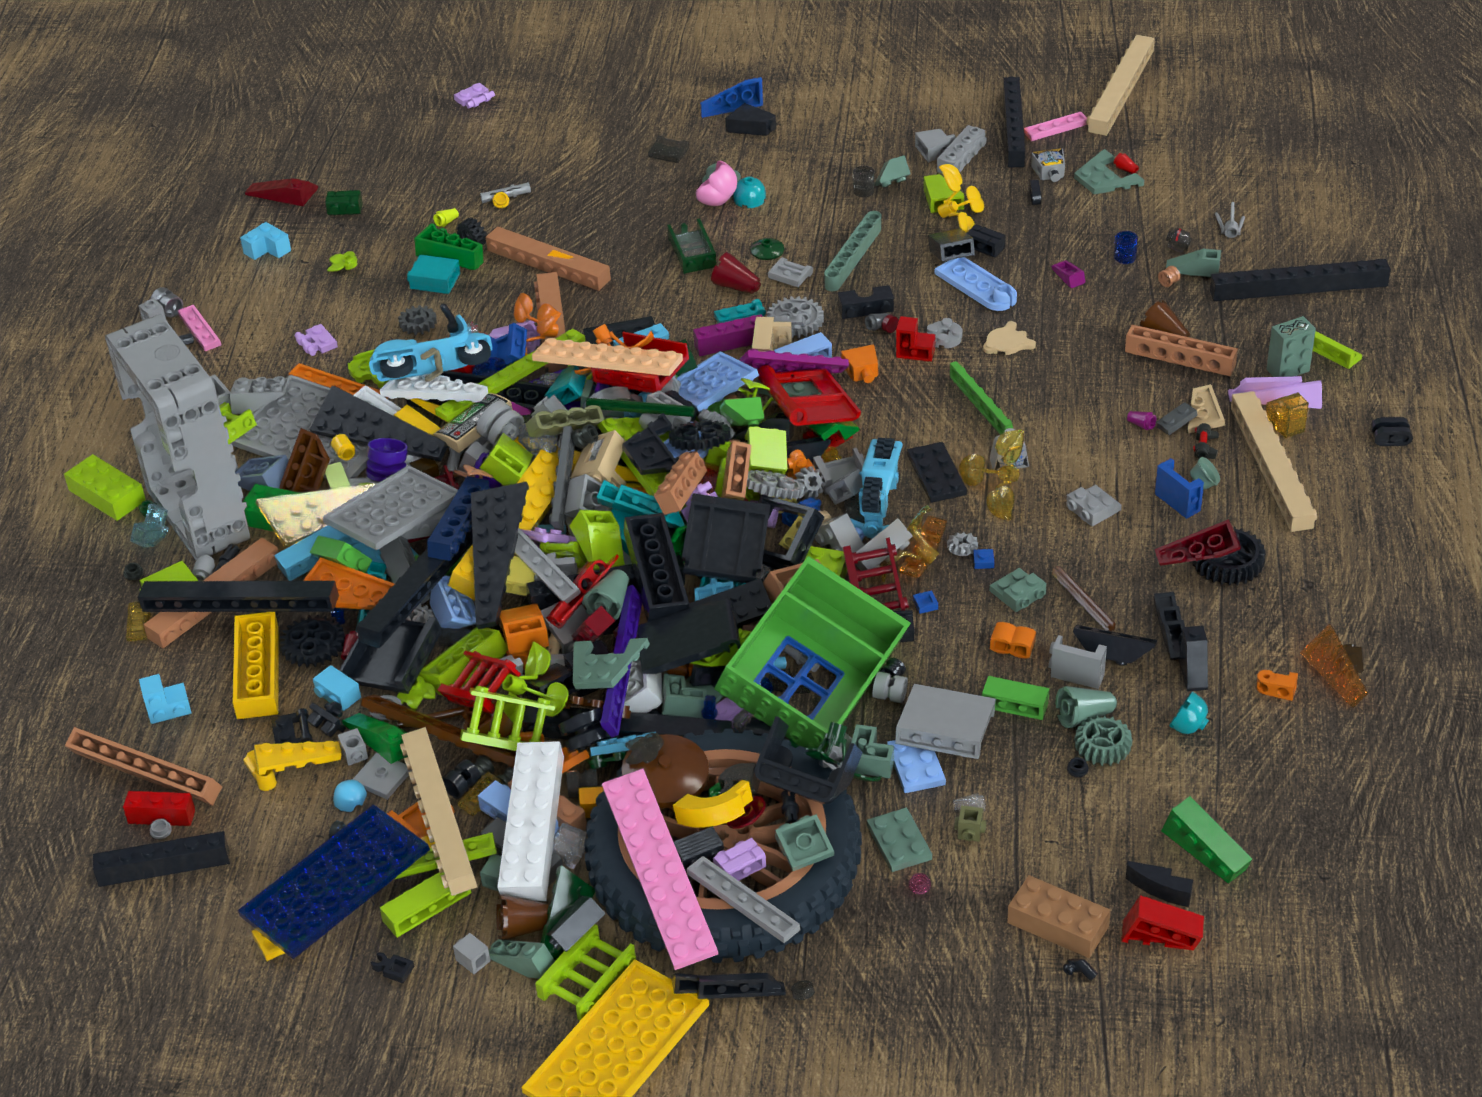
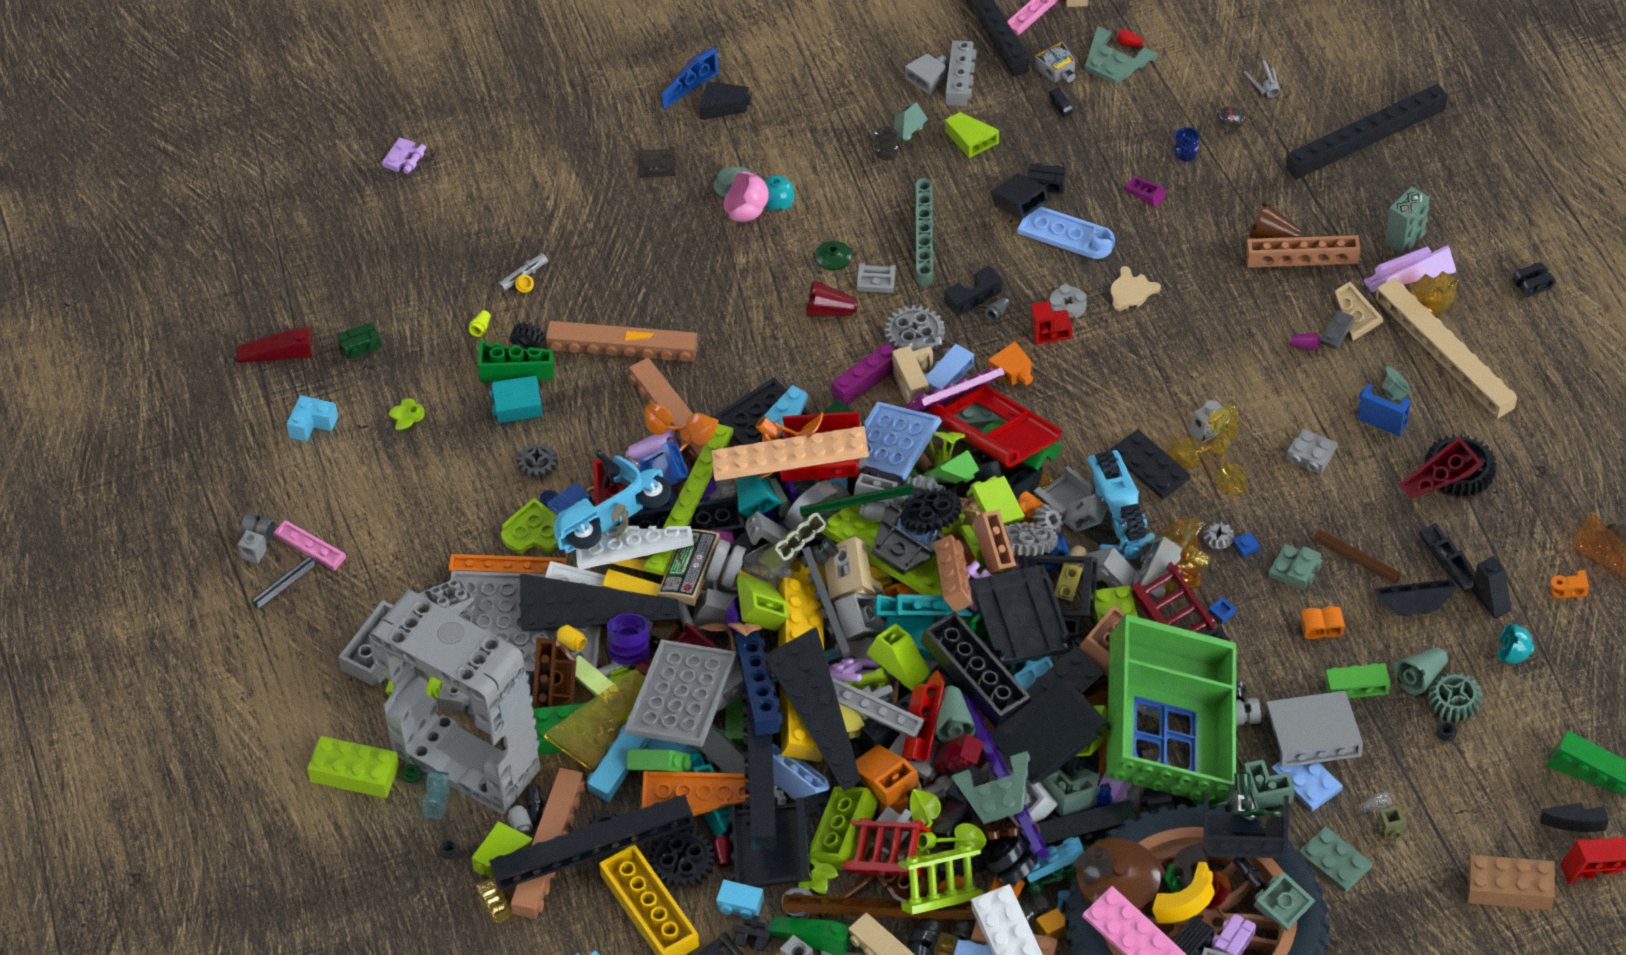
camera: 25 degrees left, 10 degrees up
(320, 339) = (447, 514): lavender plate -> none
(693, 248) = (761, 279): dark green door -> none
(740, 311) = (855, 344): teal plate -> none
(890, 323) = (1011, 308): dark red tile -> none
(919, 883) = (1377, 890): clear pink plate -> none
(949, 208) = (990, 149): yellow plant -> none
(979, 398) = (1147, 369): bright green plate -> none
(1077, 664) = (1395, 630): light grey panel -> none
(1080, 965) = (1551, 920): black arm -> none
(1169, 276) = (1243, 165): nougat wheel -> none
(1198, 263) = (1262, 142): sand green slope -> none
(1202, 449) = (1376, 357): pearl dark grey piece -> none
(1335, 351) = (1438, 202): lime fence -> none

